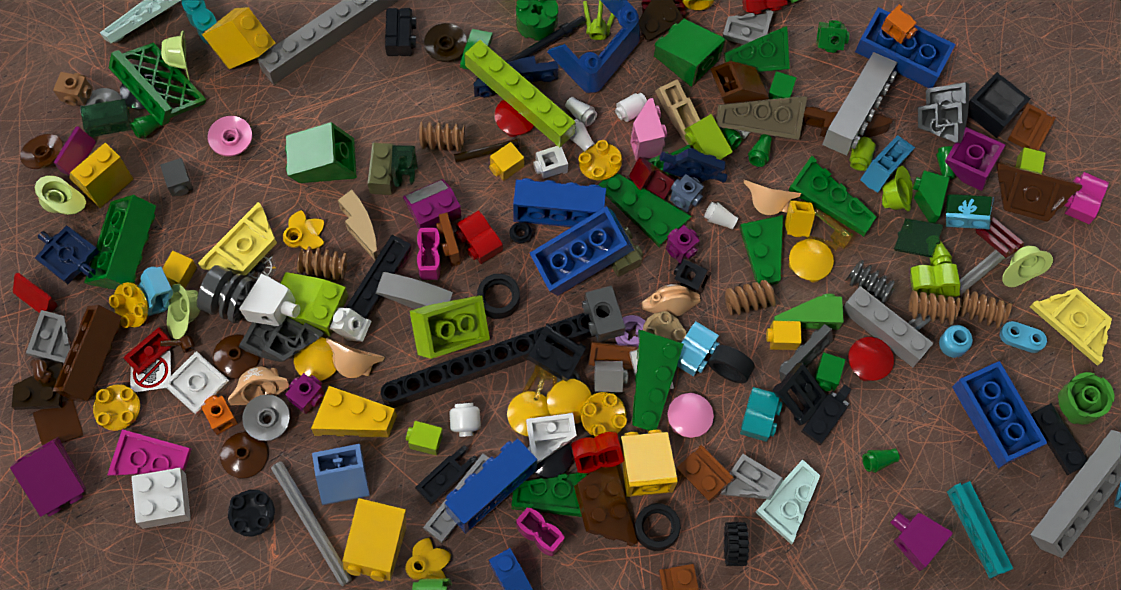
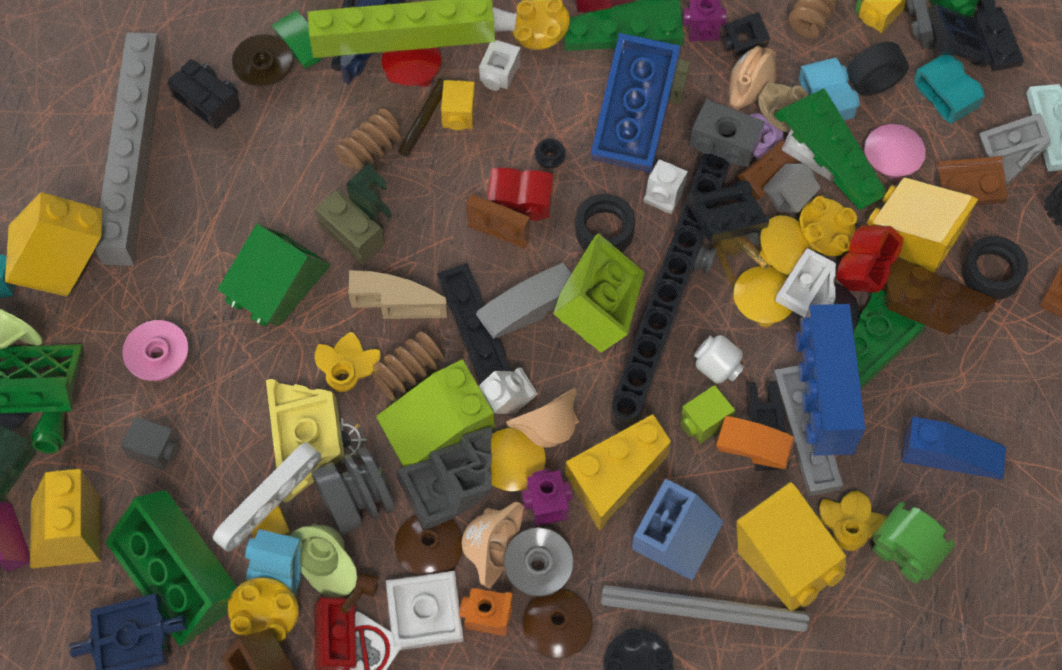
camera: 45 degrees left, 5 degrees down
(58, 196) = (47, 591): yellowish green piece -> none
(185, 255) = (267, 497): none -> white beam
(269, 303) = (408, 450): white torso -> none
(425, 475) = (754, 440): none -> orange slope
(429, 252) = (497, 252): dark pink brick -> none
(431, 201) = (438, 210): magenta slope -> none
(523, 365) = (705, 258): none -> dark grey bush
(534, 528) = (918, 378): dark pink brick -> none
(550, 308) = (665, 186): none -> white brick
(555, 203) = (557, 89): blue brick -> none

